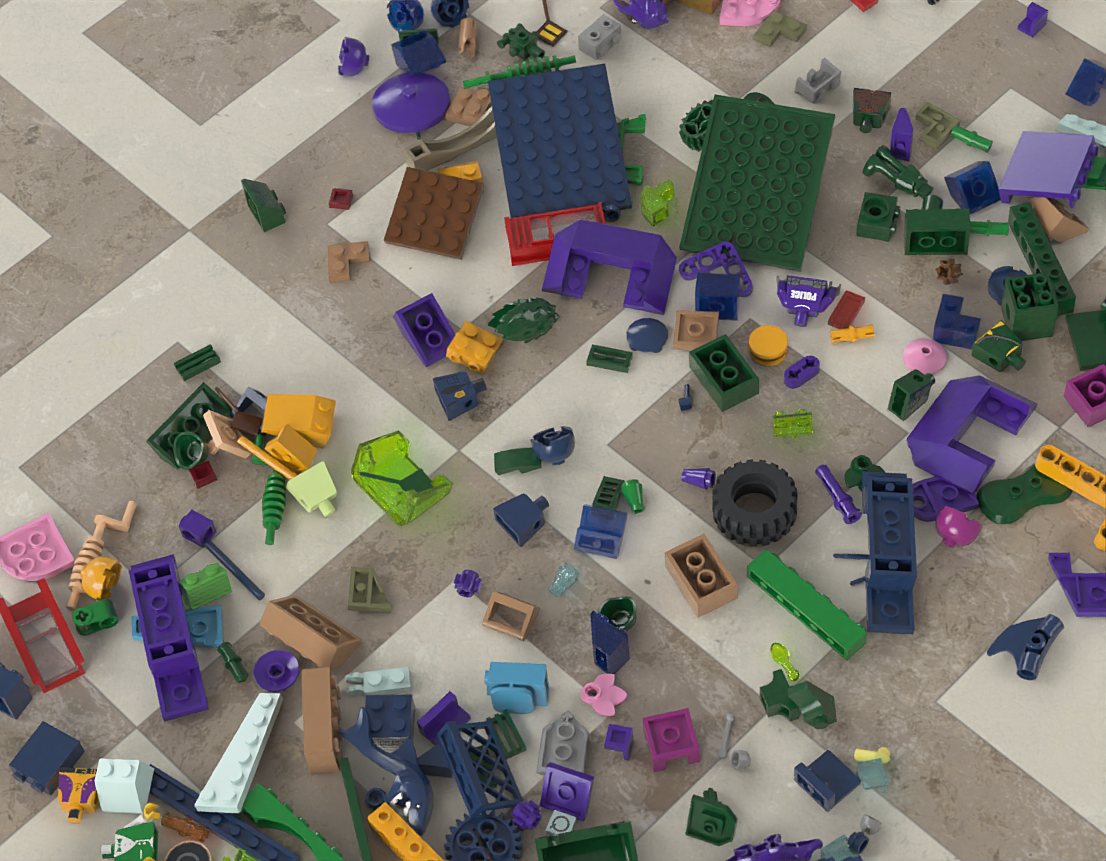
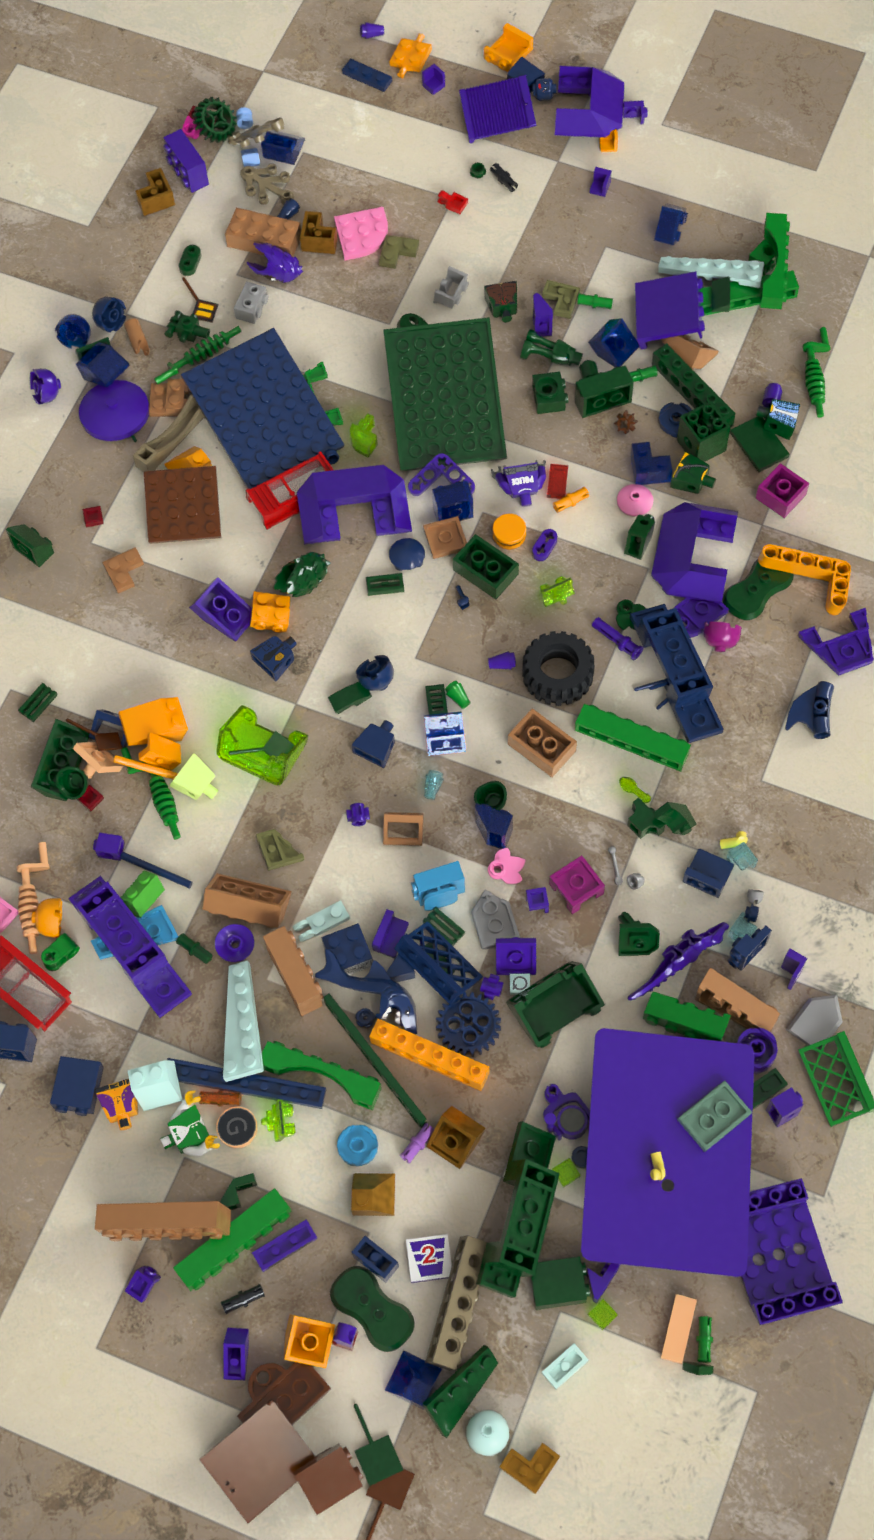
camera: 25 degrees left, 10 degrees up
(695, 125) = (371, 354): dark green gear -> none

